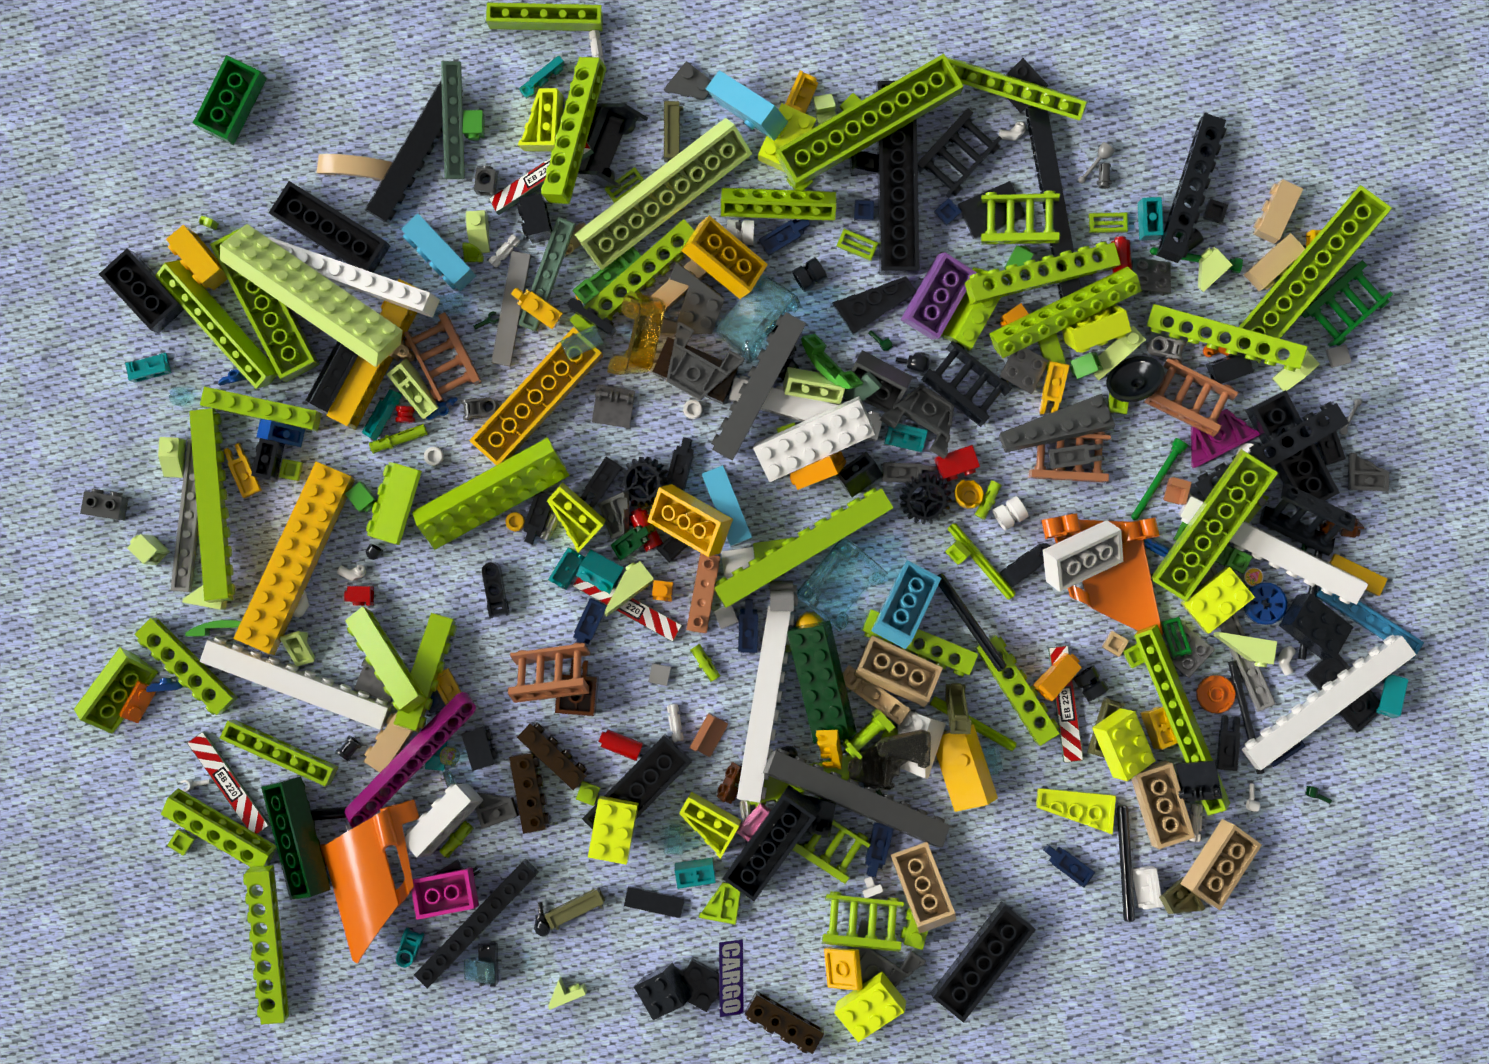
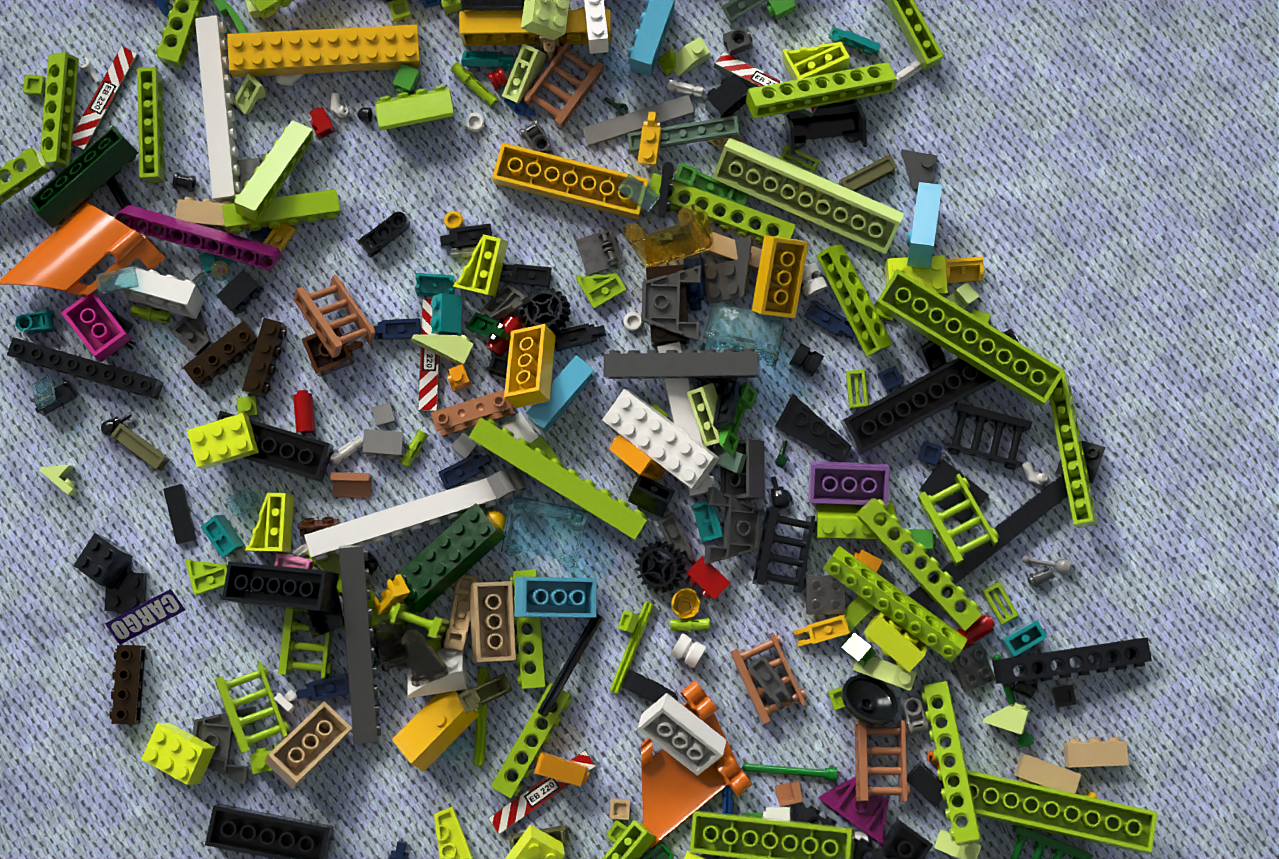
camera: 65 degrees right, 5 degrees down
(414, 853) = (117, 280): none -> clear light blue tile
(490, 493) = (465, 185): lime brick -> none
(647, 422) = (601, 288): none -> lime wing
(686, 688) = (382, 443): none -> light grey brick
(697, 341) = (695, 292): none -> dark blue hinge
(815, 365) = (727, 405): none -> black hinge
(843, 968) = (201, 712): yellow tile -> none
(1070, 422) = (797, 660): dark grey wing -> none
(1091, 690) = (569, 811): black wheel -> none

